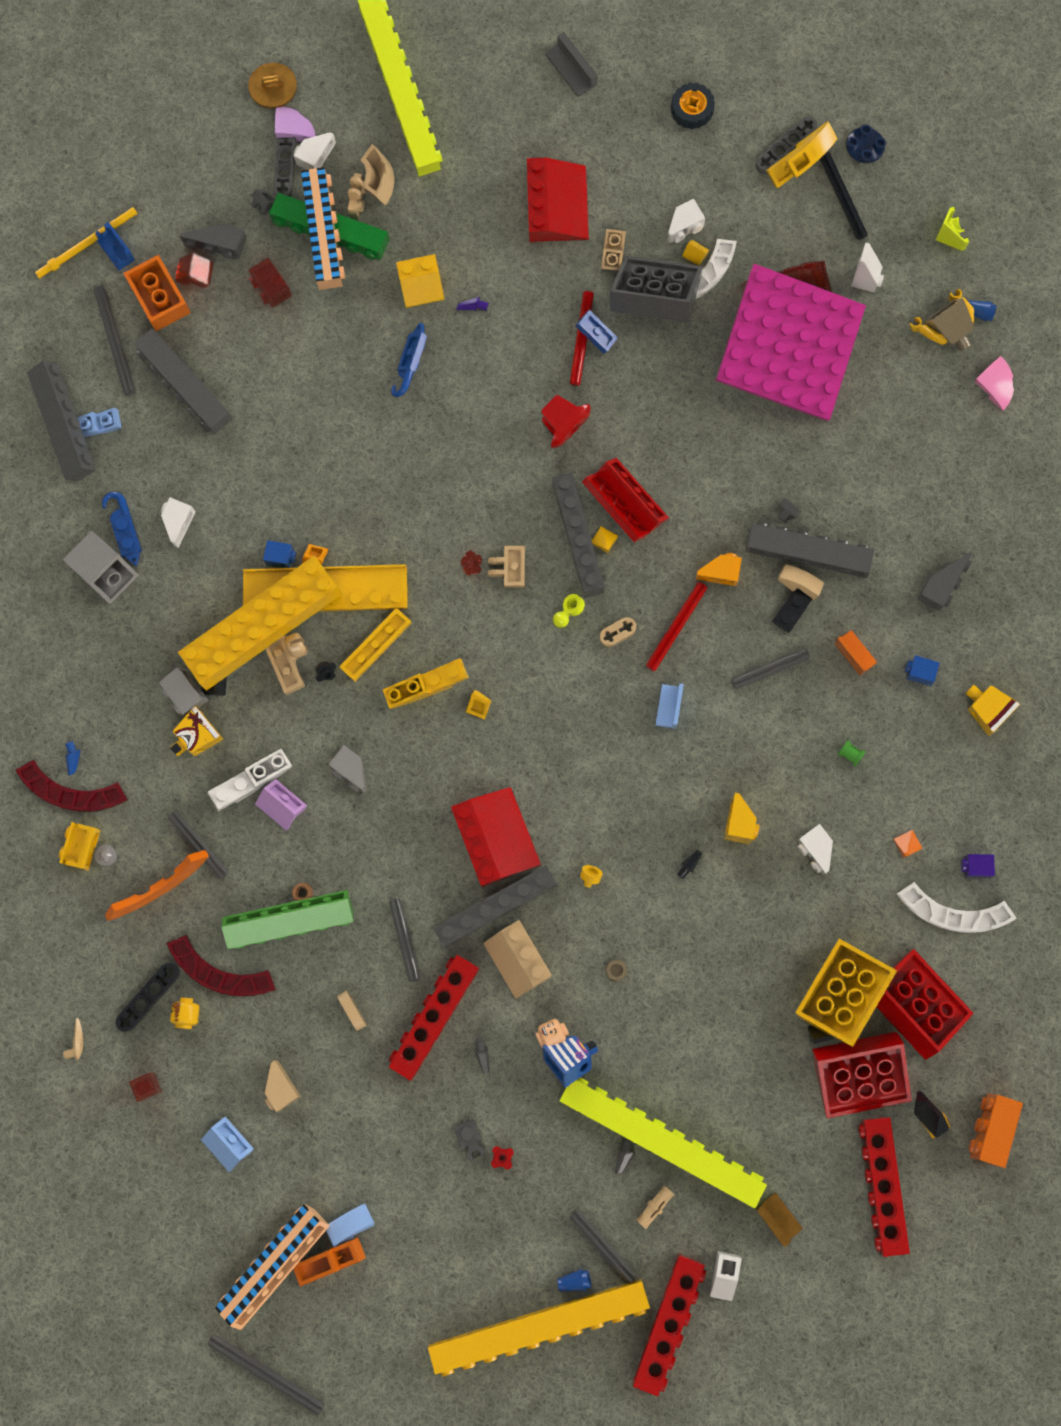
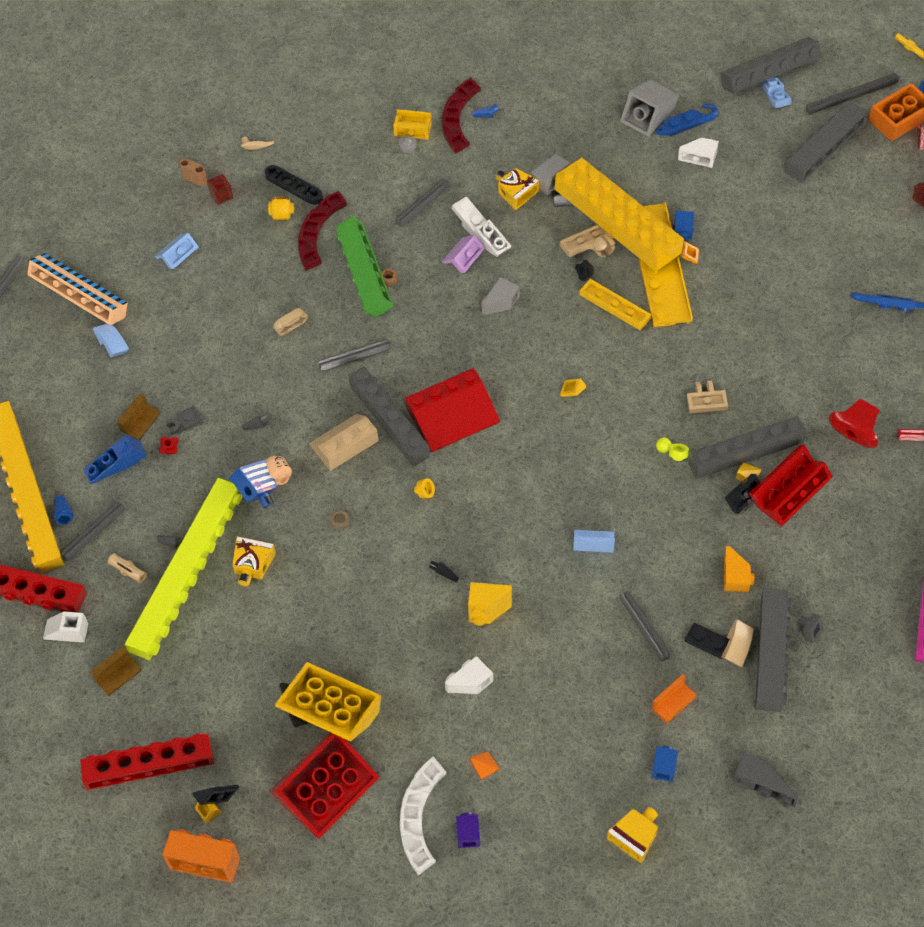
camera: 80 degrees right, 20 degrees down
(113, 1119) = (193, 172): none -> medium nougat piece
(182, 872) = (397, 190): orange tile -> none
(279, 1088) = (223, 278): tan slope -> none
(329, 1261) = (81, 330): orange slope -> none
(397, 1060) = (245, 367): red brick -> none
(425, 684) = (583, 343): yellow slope -> none
(462, 1191) = (138, 418): none -> pearl gold panel
(471, 563) = (704, 368): clear red plant -> none
(516, 1220) = (118, 457): none -> blue slope
(615, 627) = (662, 489): tan beam -> none
(635, 551) = (739, 496): none -> black plate
(660, 1068) = (252, 559): none -> torso
(676, 626) = (674, 540): red axle -> none
(851, 753) = (569, 703): bright green bush -> none
(863, 1075) = (252, 734): red slope -> none

